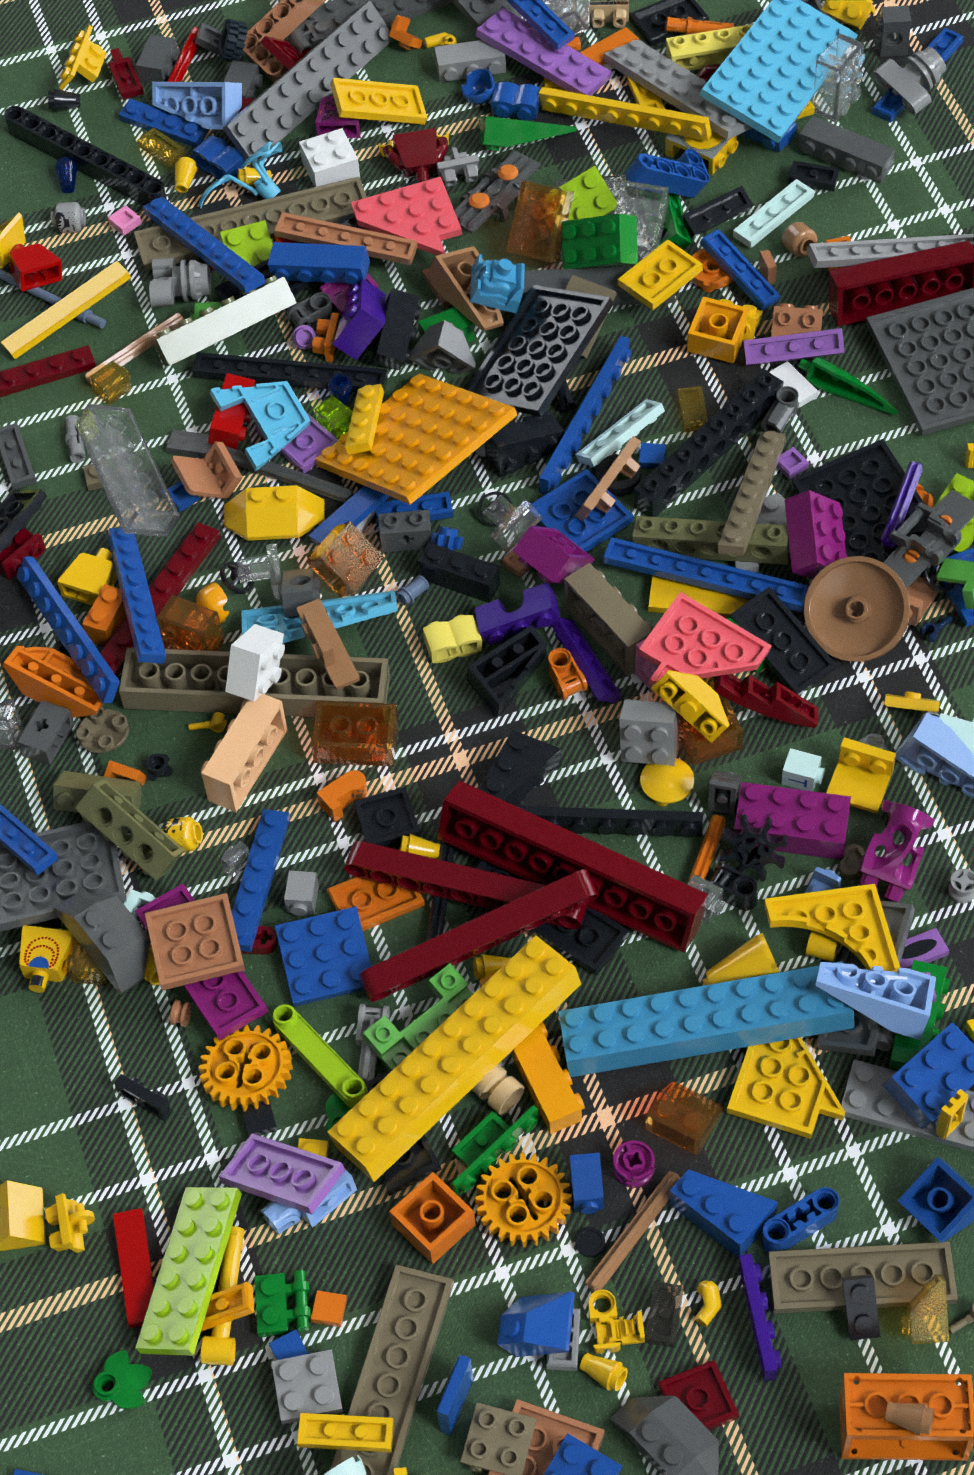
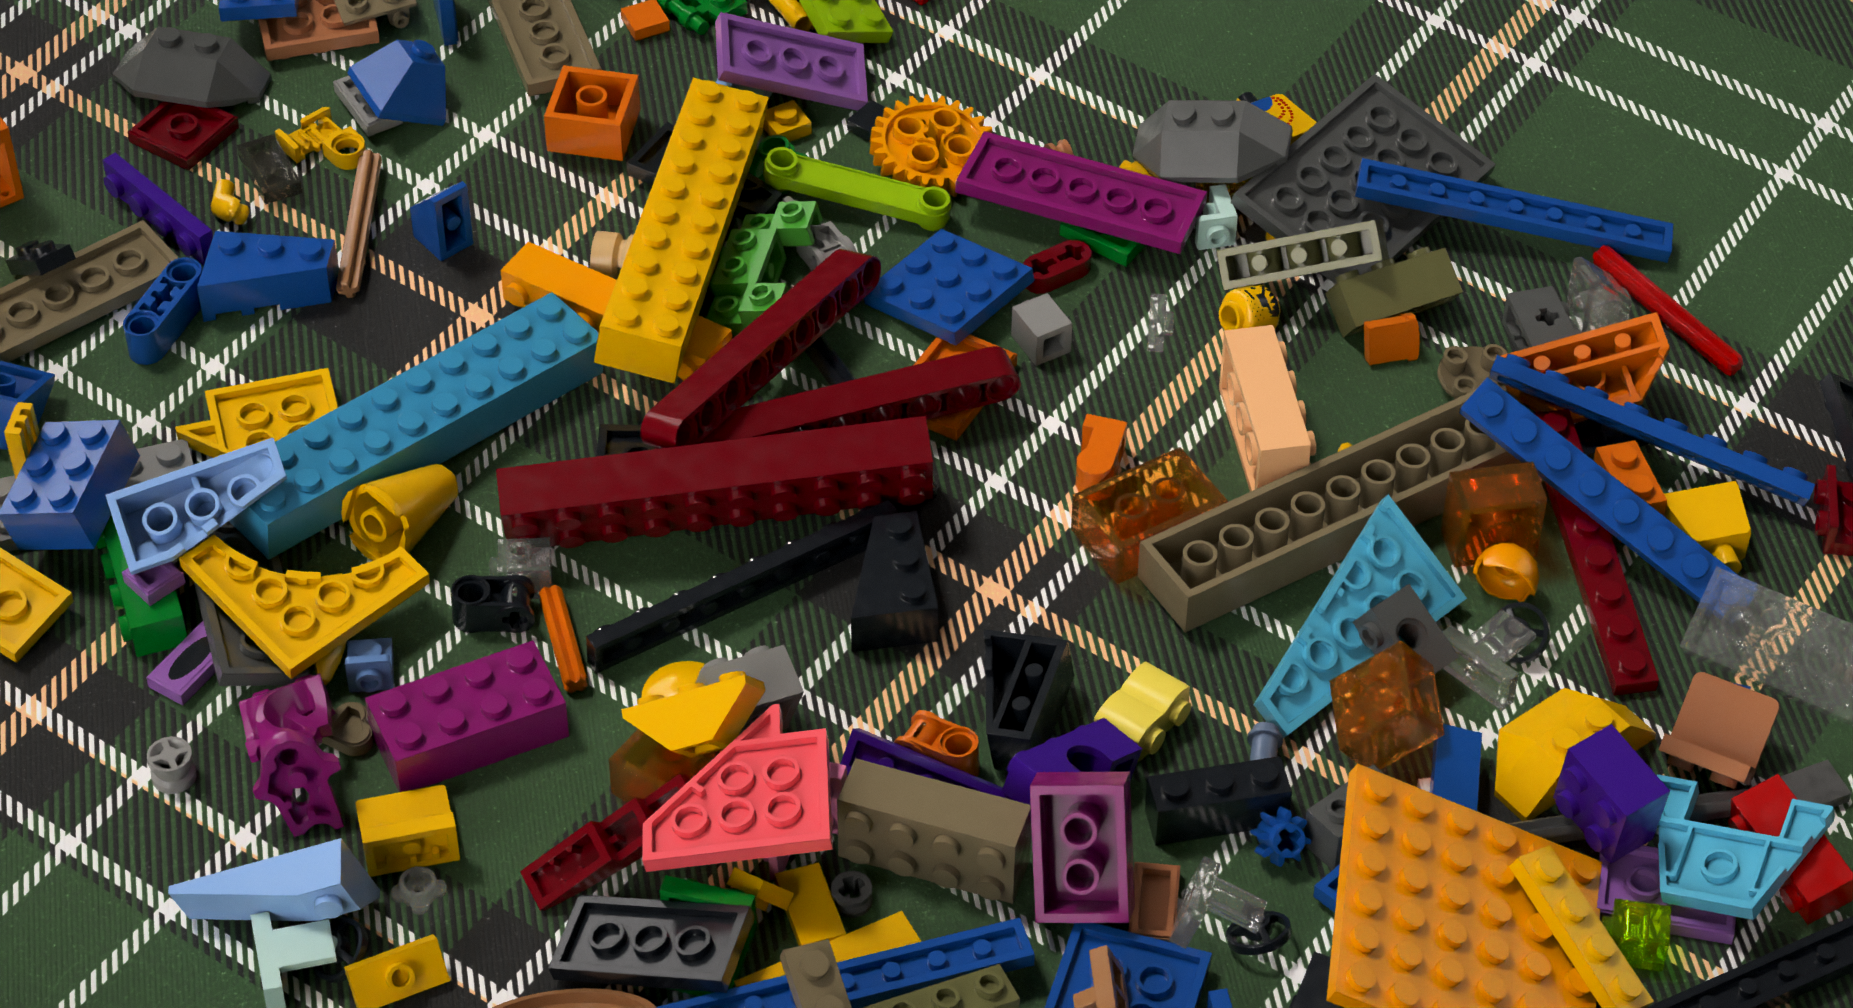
camera: 140 degrees right, 10 degrees down
(135, 1092) = (1018, 71): black plate -> none
(155, 761) = (1366, 374): black plate -> none
(194, 941) = (1098, 182): nougat plate -> none
(254, 662) = (1329, 441): white brick -> none
(258, 875) = (1110, 317): blue plate -> none
(295, 453) = (1610, 794): none -> dark purple brick
(327, 644) = (1285, 549): medium nougat bracket -> none
(340, 388) = (1668, 963): clear blue cone -> none
(386, 817) = (1016, 459): black plate -> none
(419, 846) = (951, 442): yellow cone -> none
(486, 1143) = (588, 204): green bracket -> none
(499, 1211) = (511, 183): light orange gear -> none
(590, 1242) = (403, 196): black piece -> none
(605, 1371) = (302, 97): yellow cone -> none
(634, 1163) = (404, 272): magenta wheel -> none
(683, 1117) = (374, 338): clear orange slope -> none
(724, 793) = (587, 694): dark grey slope -> none
(748, 839) = (489, 633): black gear -> none
(802, 770) = (498, 794): light aqua brick -> none

